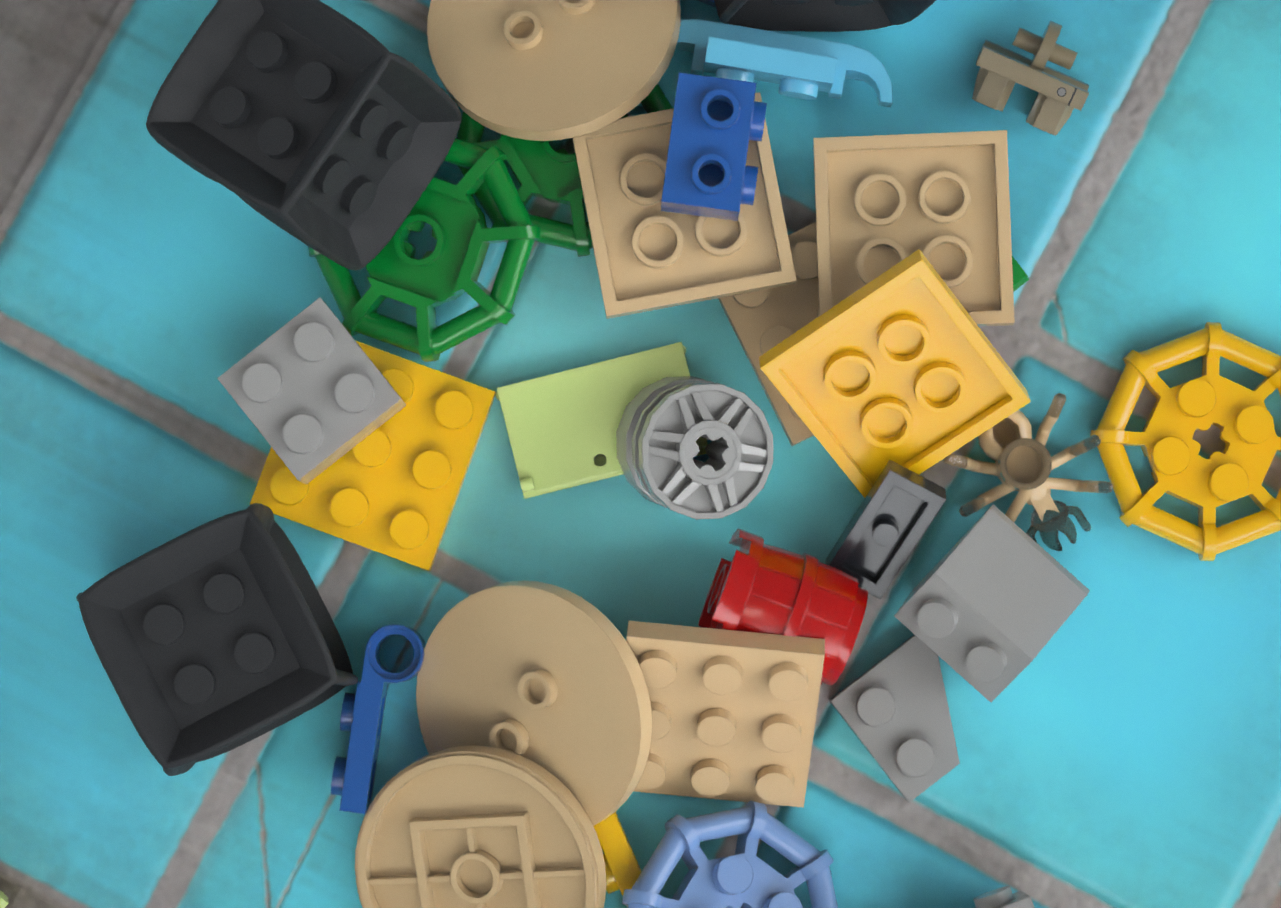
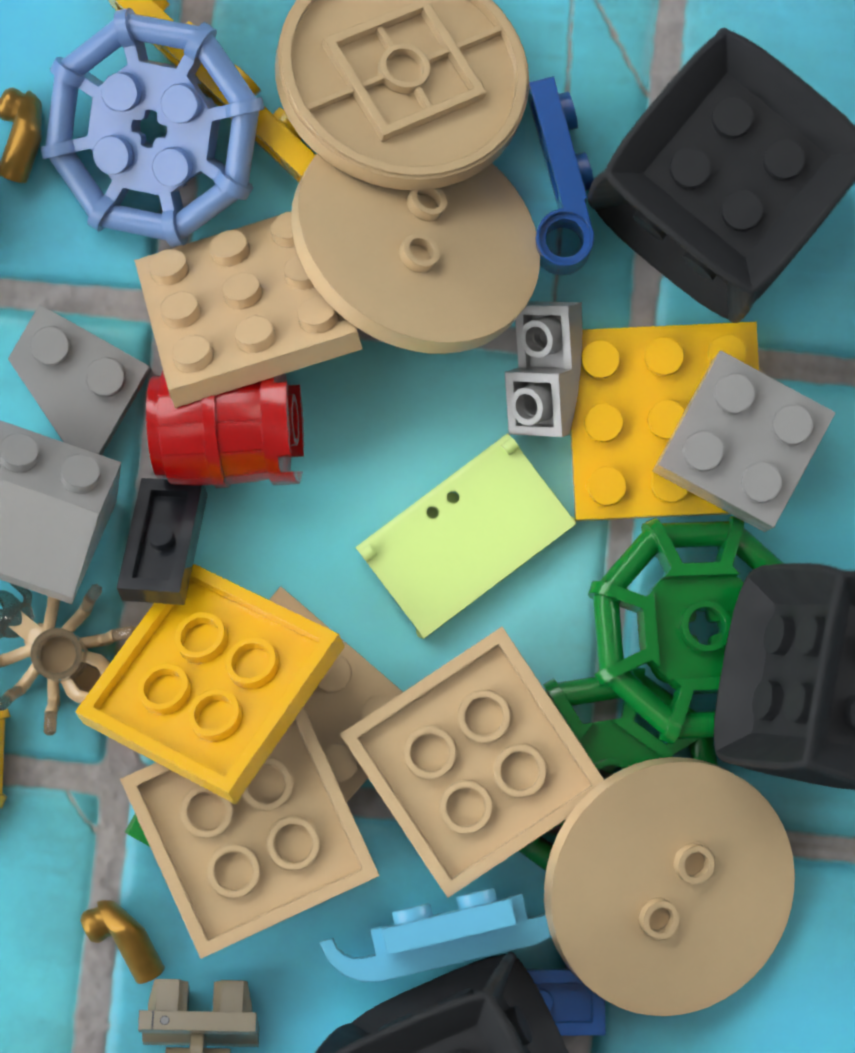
camera: 160 degrees right, 0 degrees up
(465, 534) = (546, 383): none -> light grey slope
(660, 441) = (404, 545): light grey wheel -> none
(710, 147) = (471, 822): blue brick -> none
(1062, 185) = (129, 935): none -> pearl gold arm

